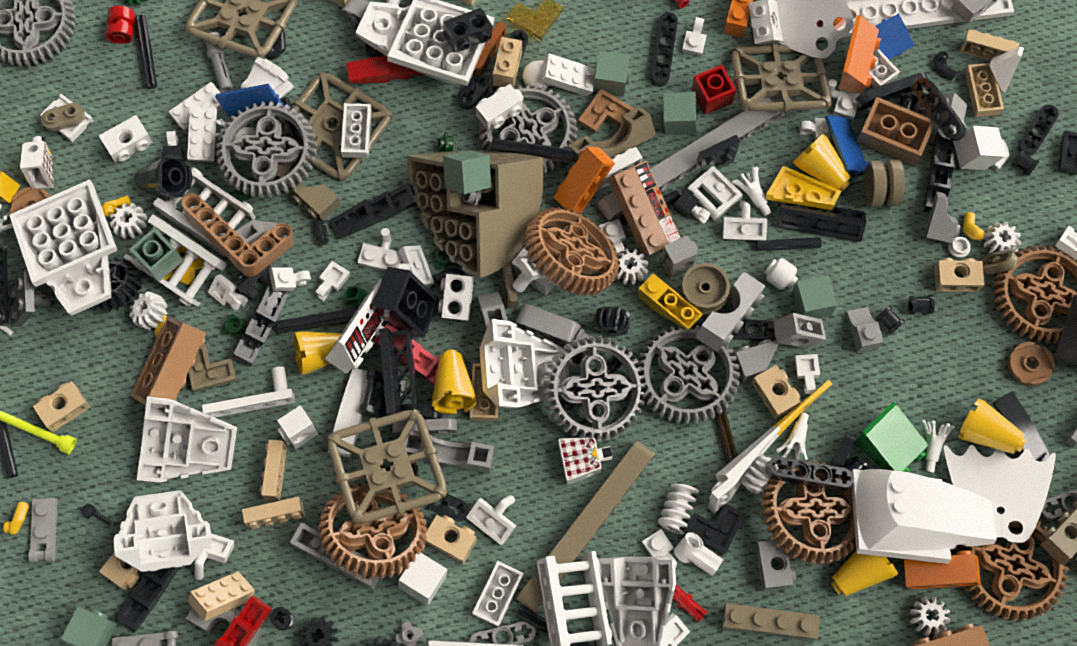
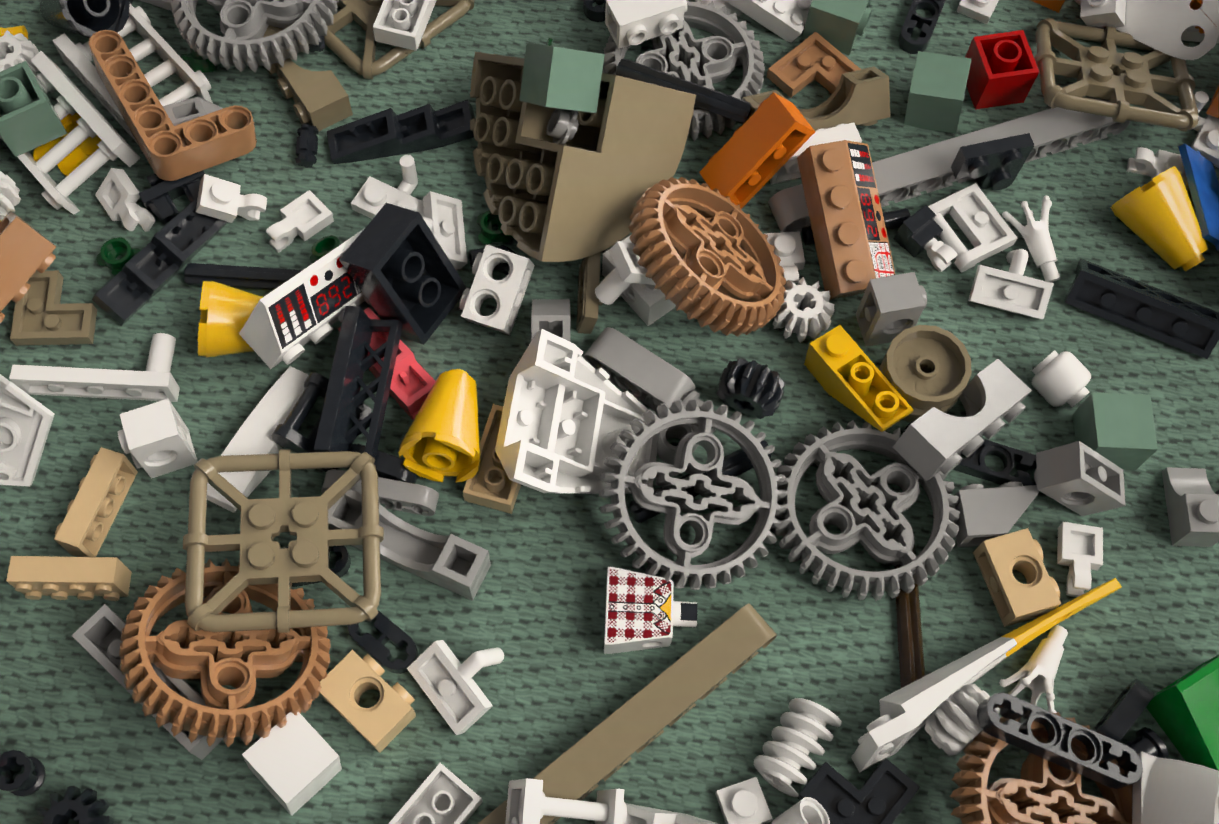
camera: 10 degrees right, 5 degrees down
(788, 244) = (1080, 335): black piece -> none
(802, 190) = (1118, 252): yellow wing -> none

